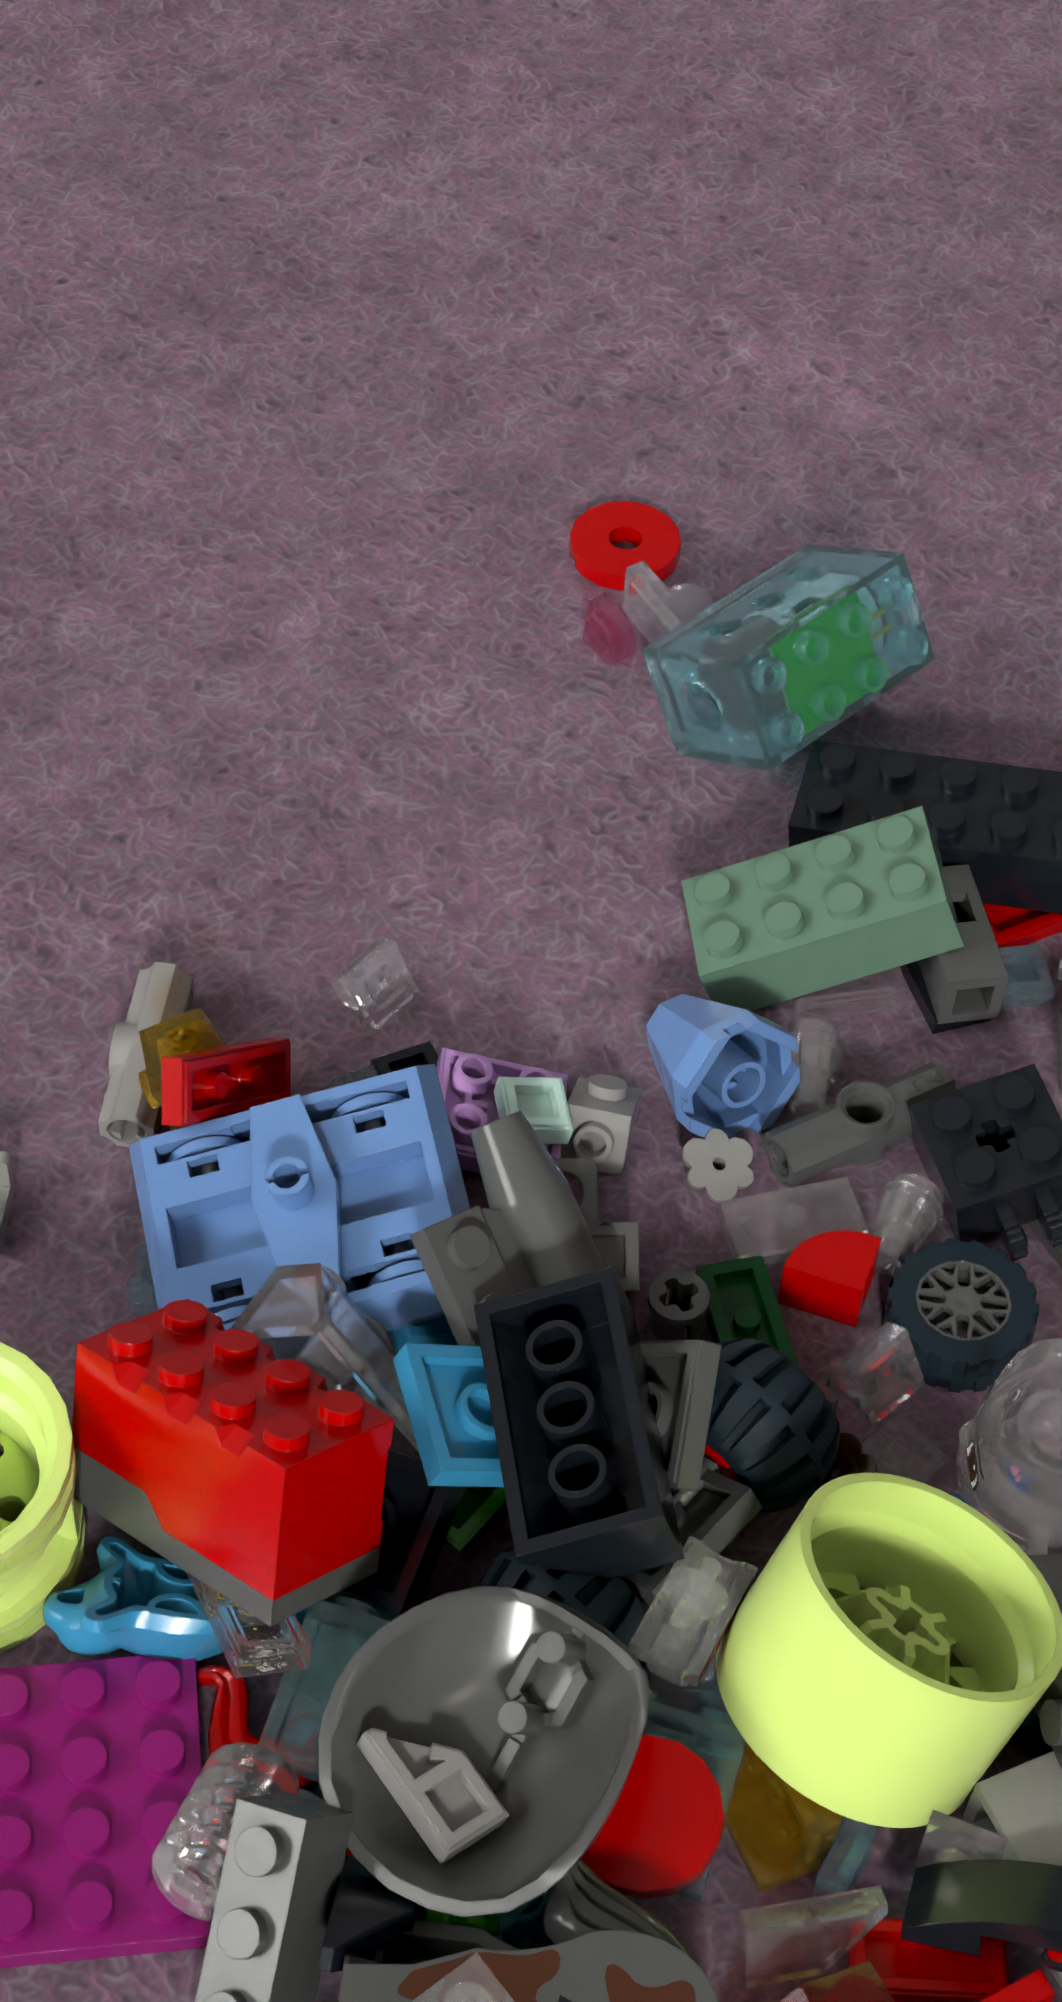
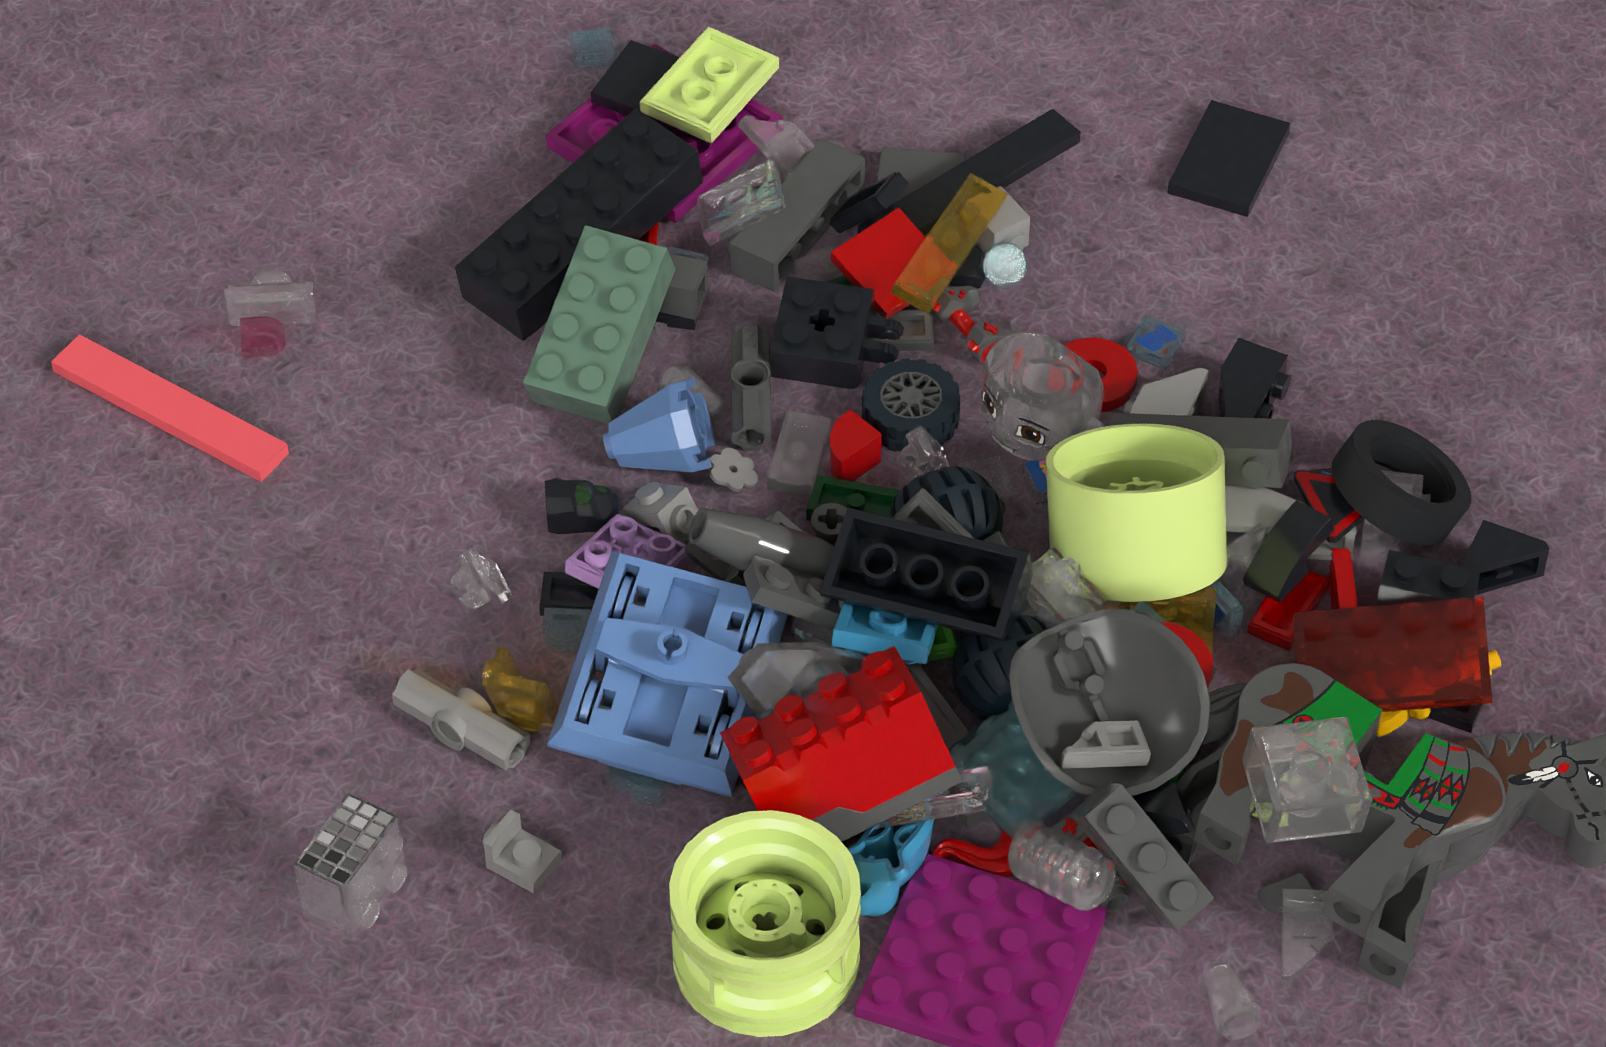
camera: 60 degrees left, 0 degrees up
(224, 1080) = (541, 668): red tile -> none
(459, 611) = (170, 408): none -> coral tile
(541, 1102) = (650, 532): light aqua tile -> none
(550, 1025) = (578, 506): none -> black rock
(623, 521) = (173, 278): red tile -> none
(789, 655) = (381, 243): clear light blue piece -> none
(804, 1934) = (1252, 642): clear tile -> none
(905, 1217) = (828, 396): clear cone -> none

